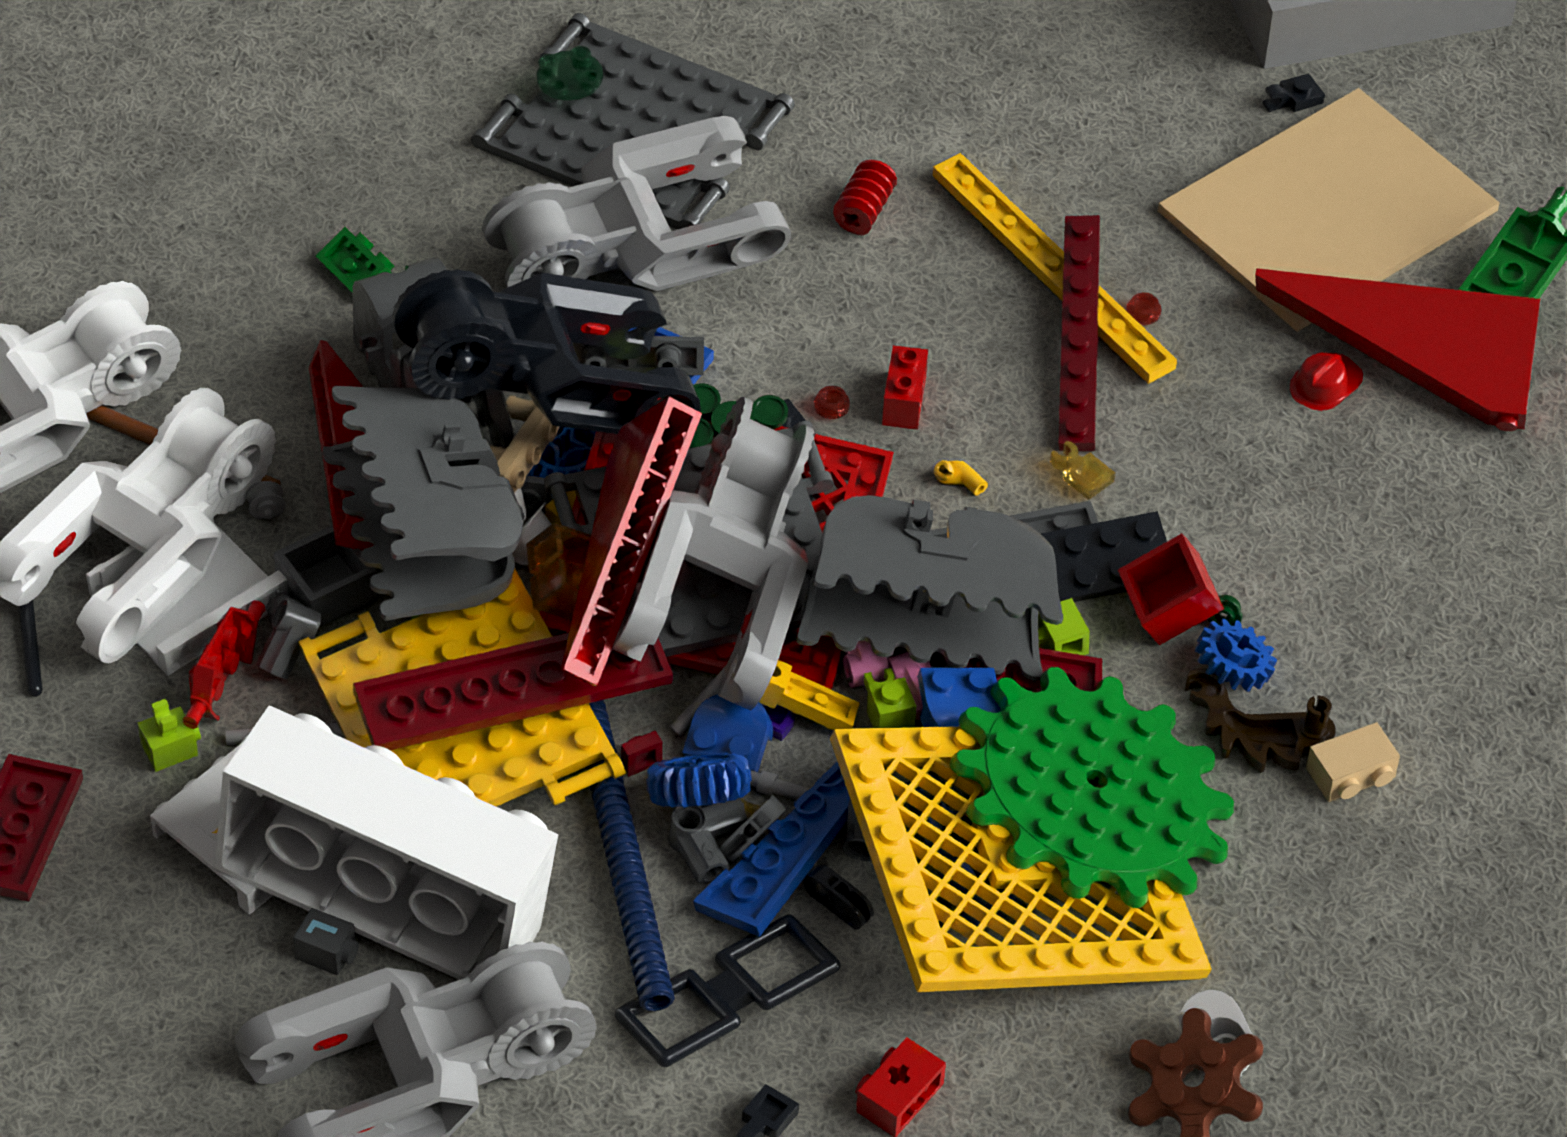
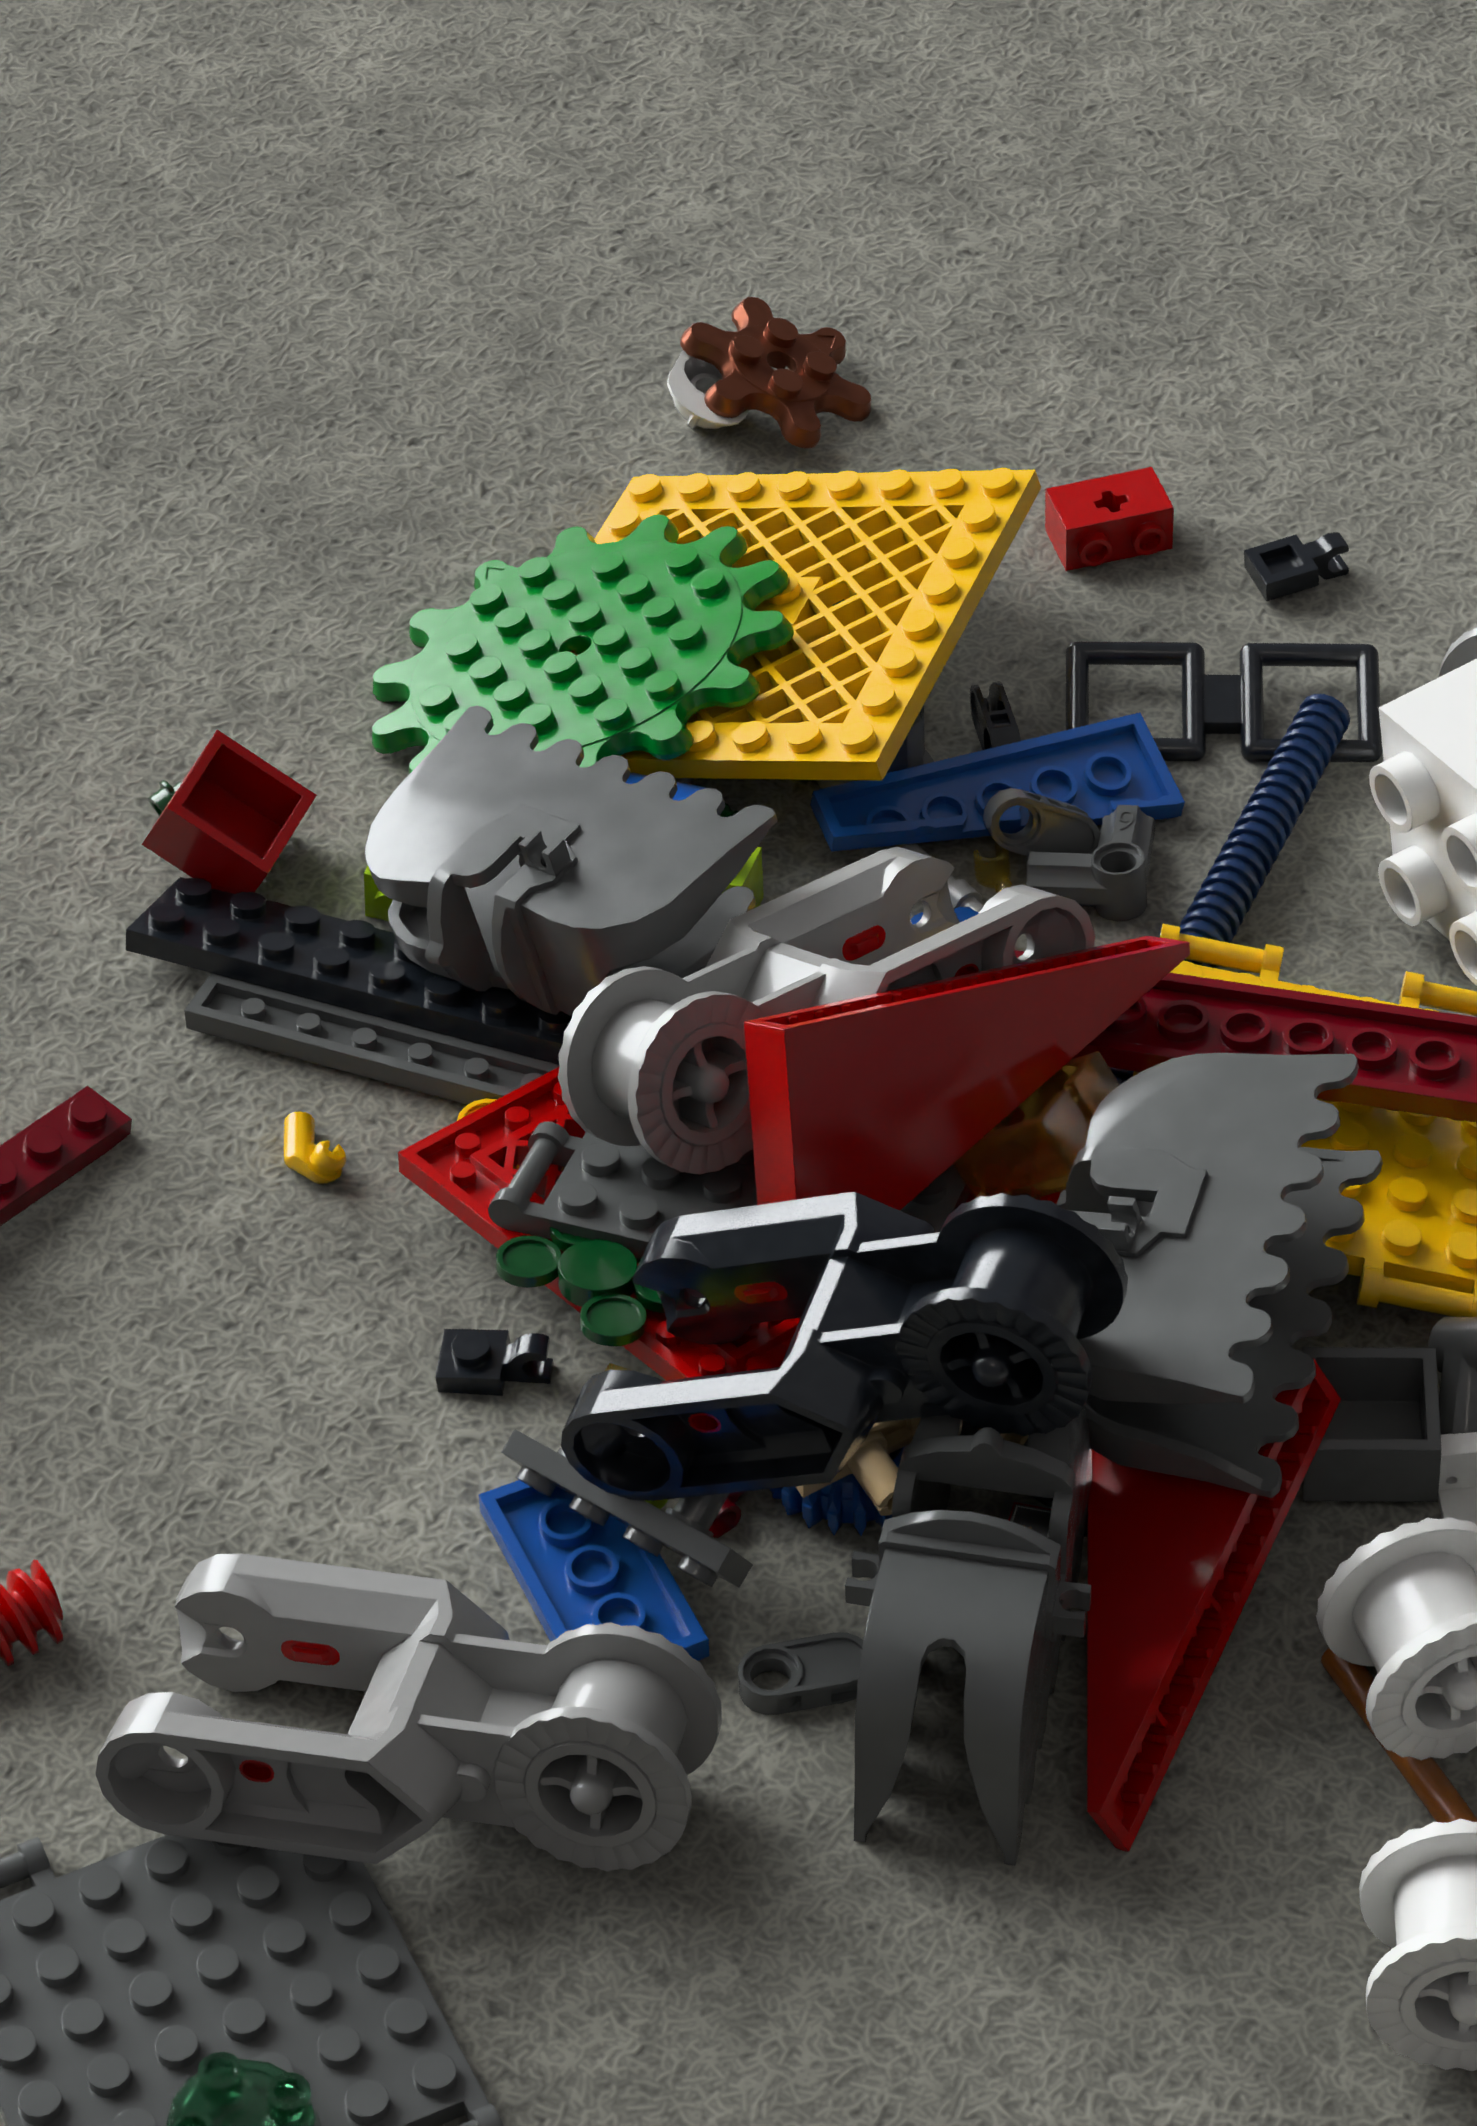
camera: 140 degrees left, 5 degrees down
(351, 258) = (910, 1975): green bracket -> none
(698, 780) = (1080, 862): blue gear -> none
(832, 402) = (377, 1343): clear red plate -> none
(905, 387) = (259, 1288): red brick -> none
(1084, 473) = (142, 1064): clear yellow plate -> none
(1235, 655) = (248, 721): blue gear -> none
(1275, 735) = (286, 660): dark brown animal -> none
(1353, 762) = (229, 580): tan brick -> none

